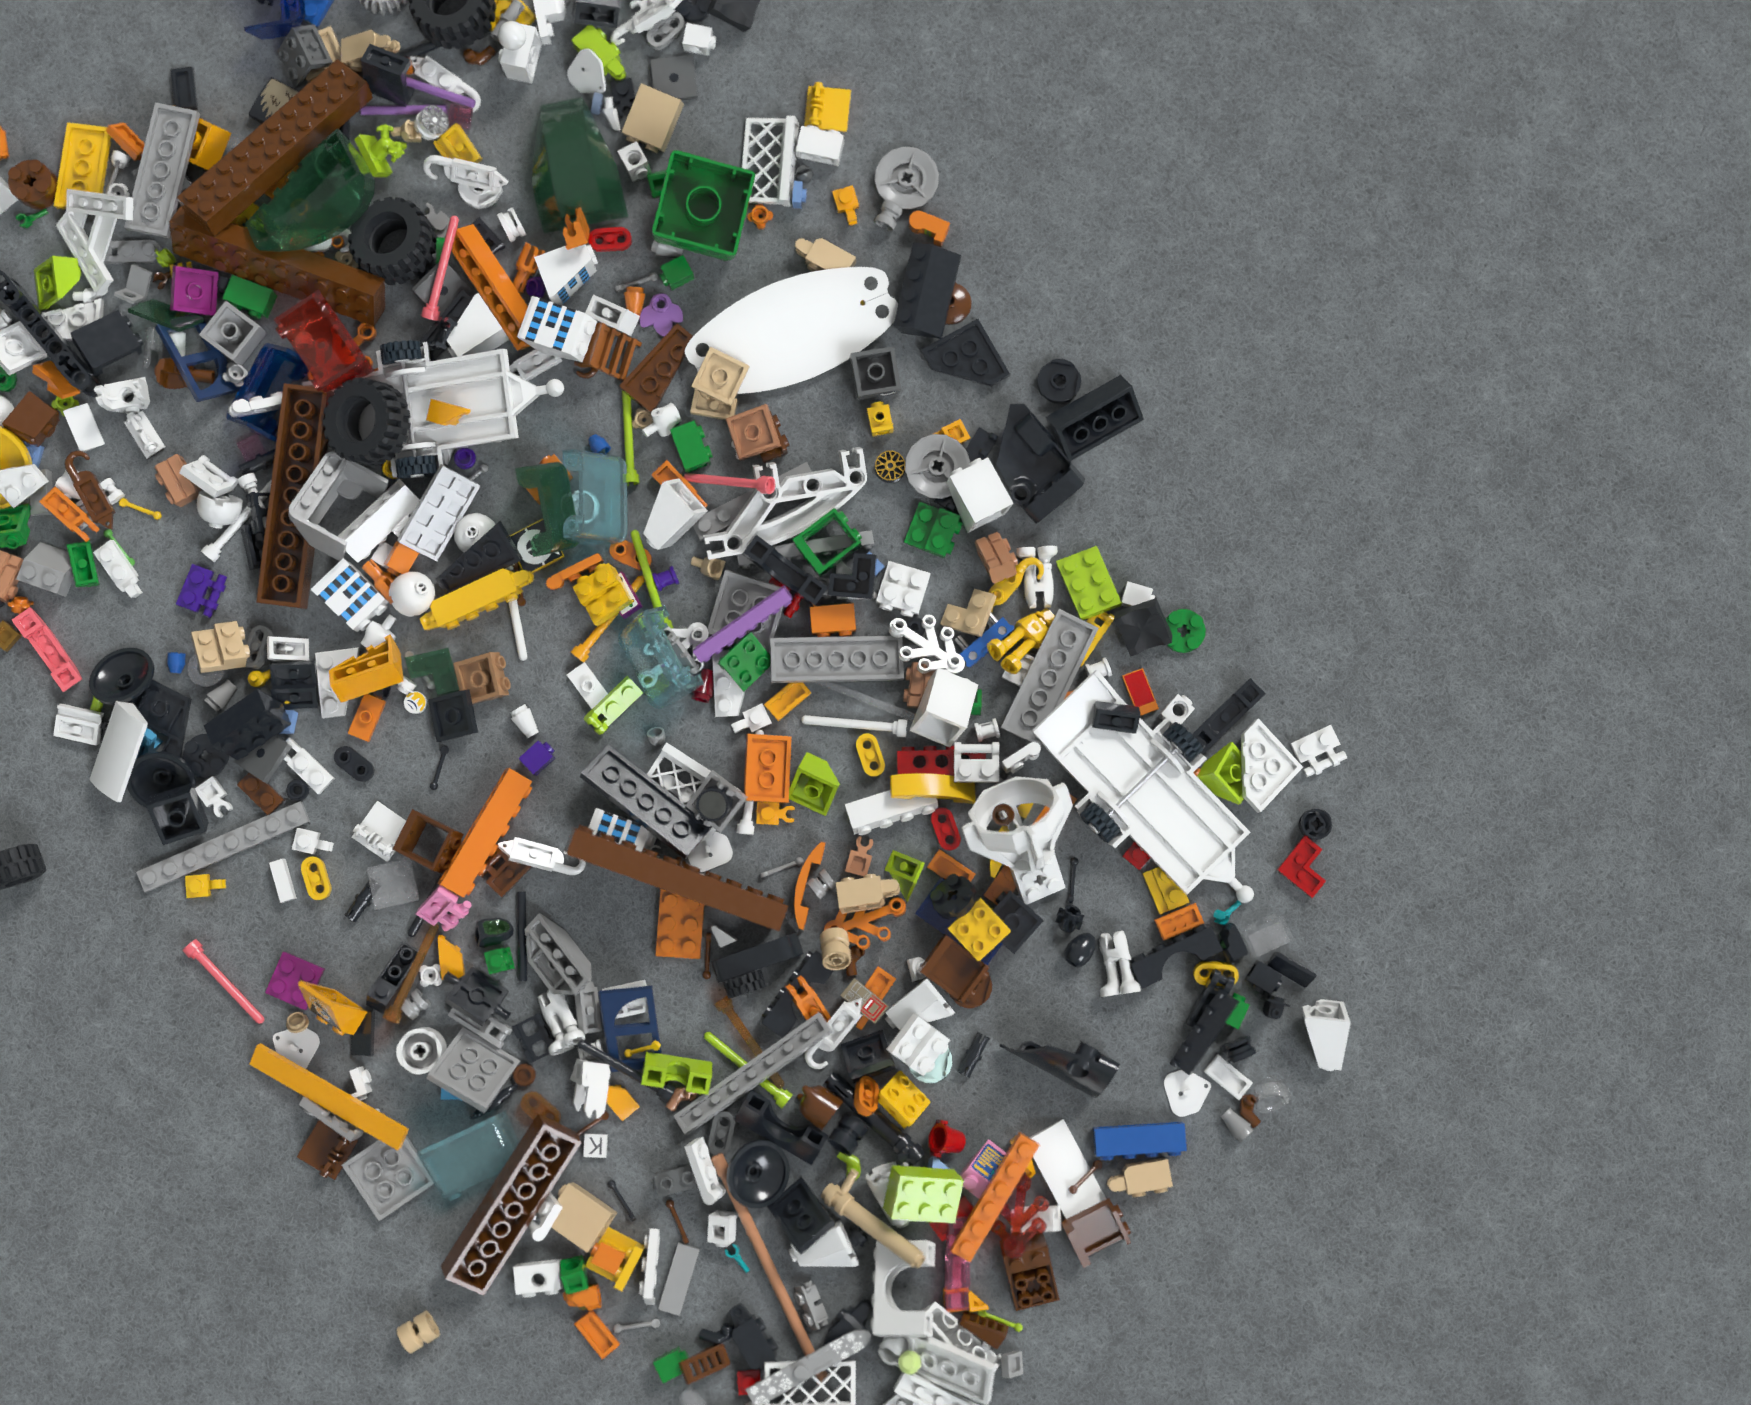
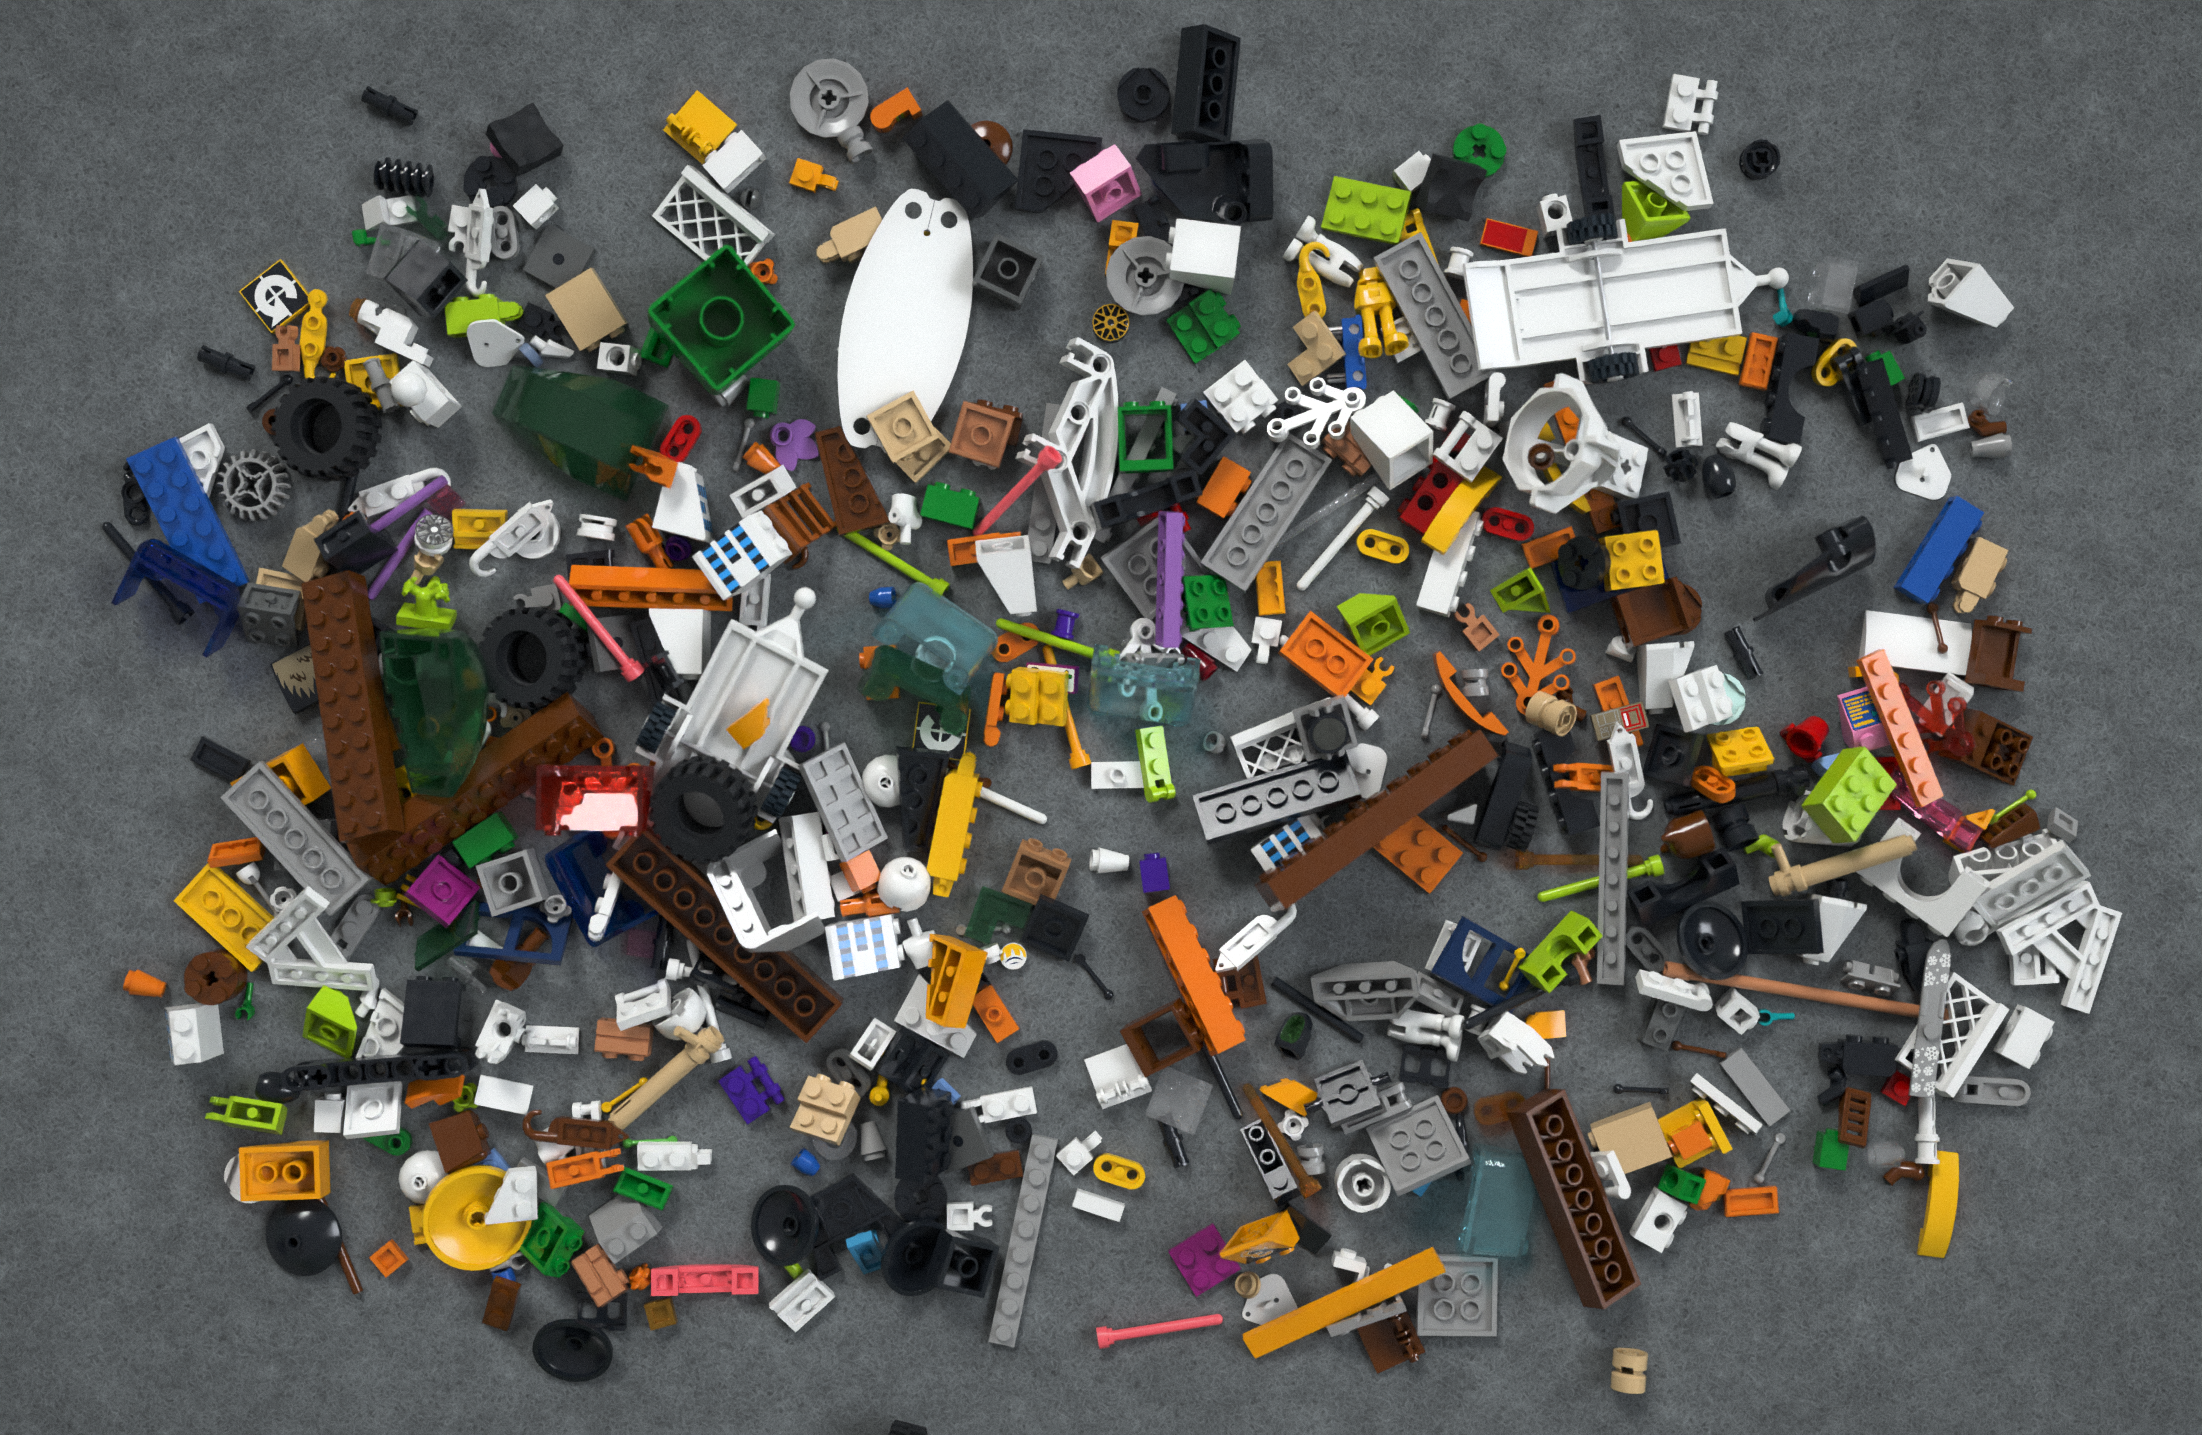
camera: 55 degrees left, 5 degrees up
(118, 750) = (860, 1277): white slope -> none
(136, 286) = (393, 945): light grey bracket -> none
(200, 533) = (696, 1052): none -> tan cylinder
(202, 885) = (1046, 1288): yellow plate -> none
(437, 906) = (1239, 1066): bright pink plate -> none
(478, 58) = (398, 441): reddish brown arm -> none
(499, 960) = (1327, 1048): green brick -> none
(595, 1145) = (1570, 1078): white tile -> none
(799, 194) = (769, 218): medium blue plate -> none
(865, 892) = (1515, 647): tan hinge -> none
(883, 426) = (1062, 306): yellow brick -> none
(909, 1362) = (1996, 920): yellowish green plate -> none
(980, 397) = (1106, 183): none -> bright pink slope
(996, 557) = (1277, 282): nougat brick -> none
(1104, 901) = (1687, 419): none -> white hinge
(1116, 717) = (1522, 277): black slope -> none
(1297, 869) = (1786, 207): red plate -> none

